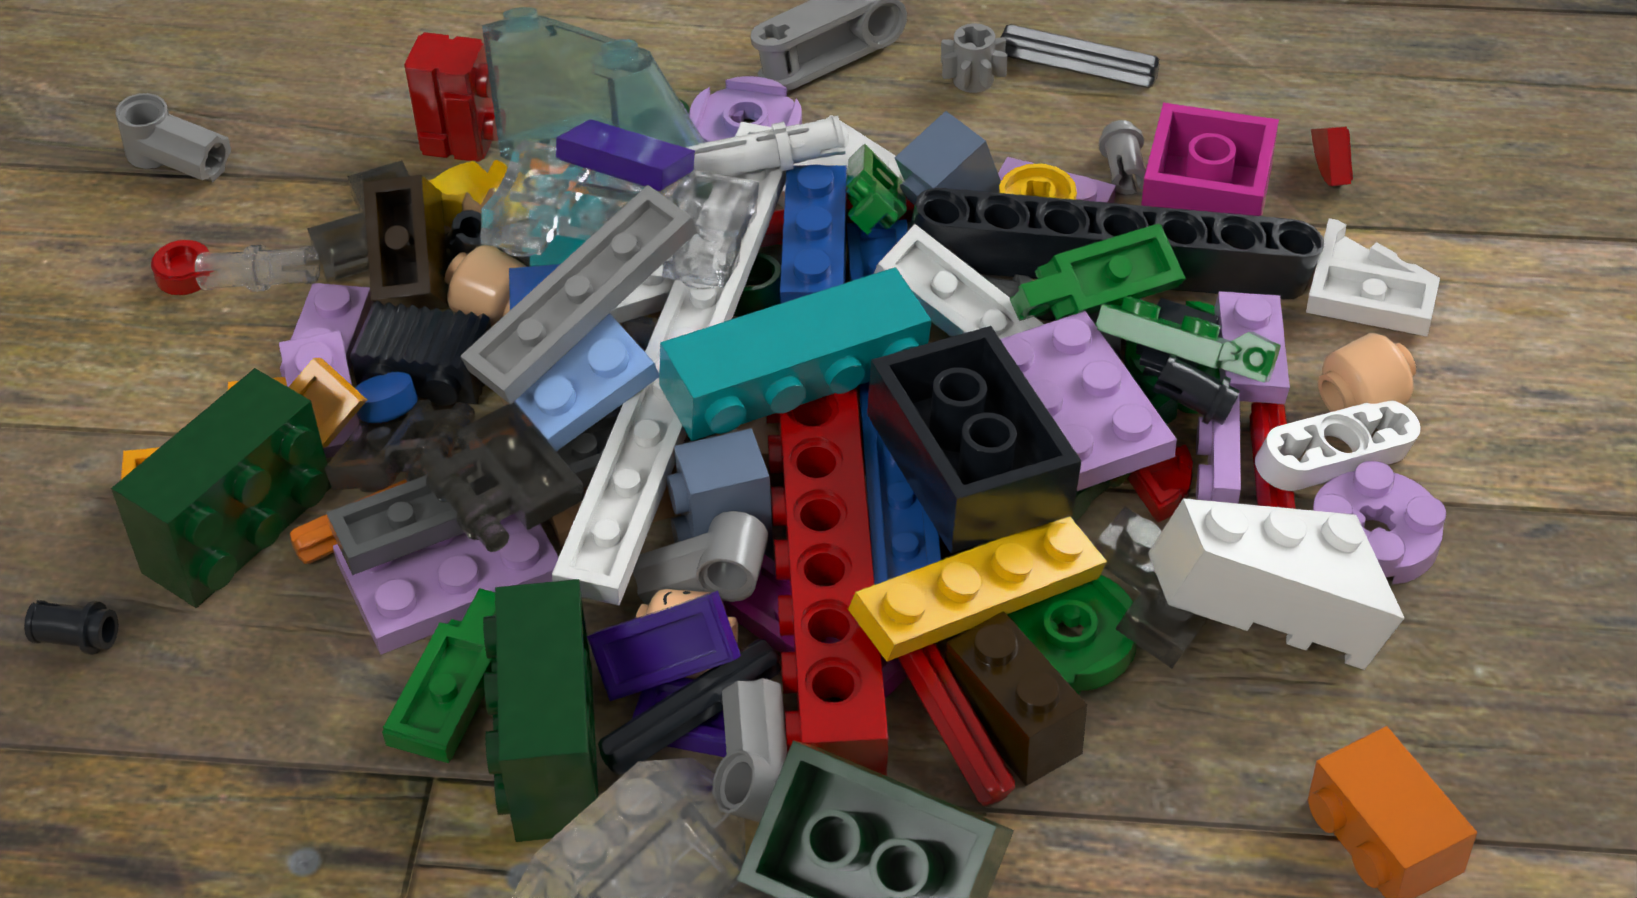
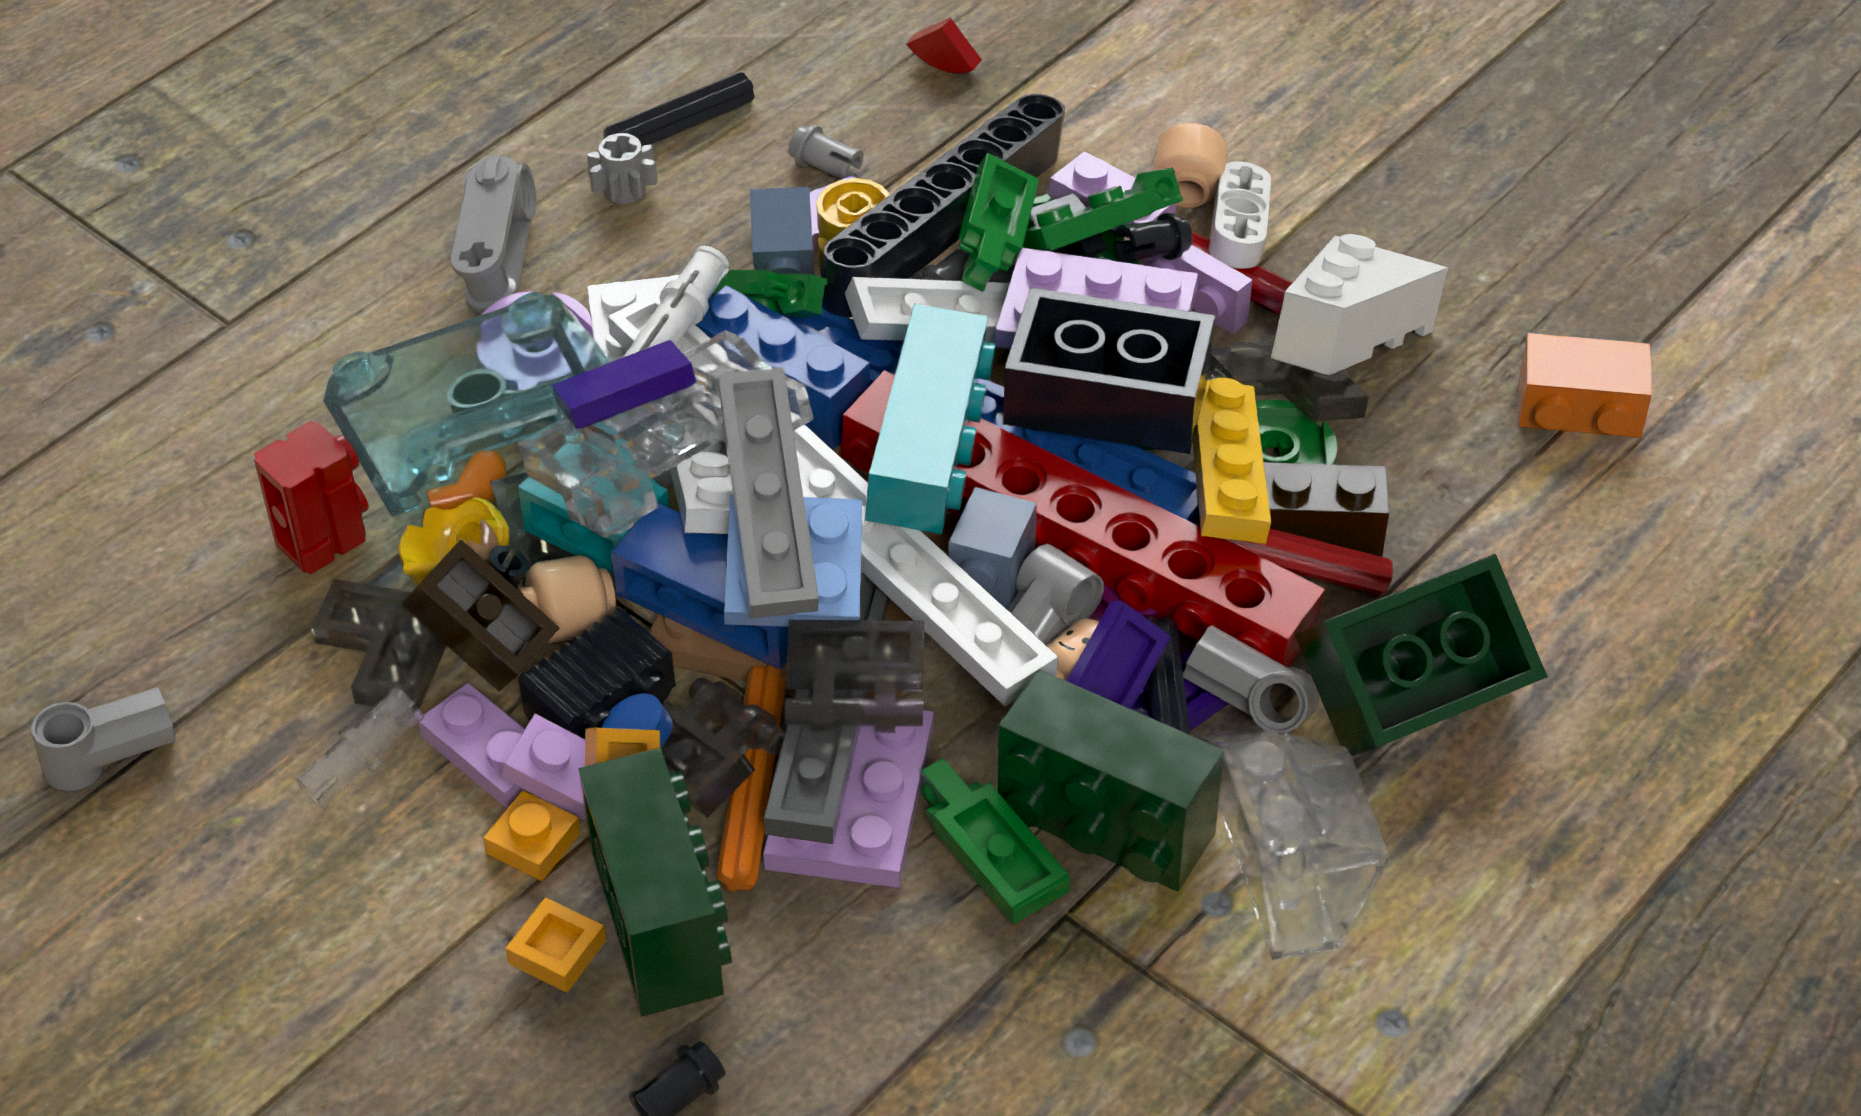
camera: 55 degrees left, 0 degrees up
(175, 267) = (277, 811): red tile -> none
(1210, 161) = (909, 111): dark pink brick -> none
(1371, 285) = (1106, 109): white wing -> none
(1398, 502) = (1301, 225): lavender plate -> none

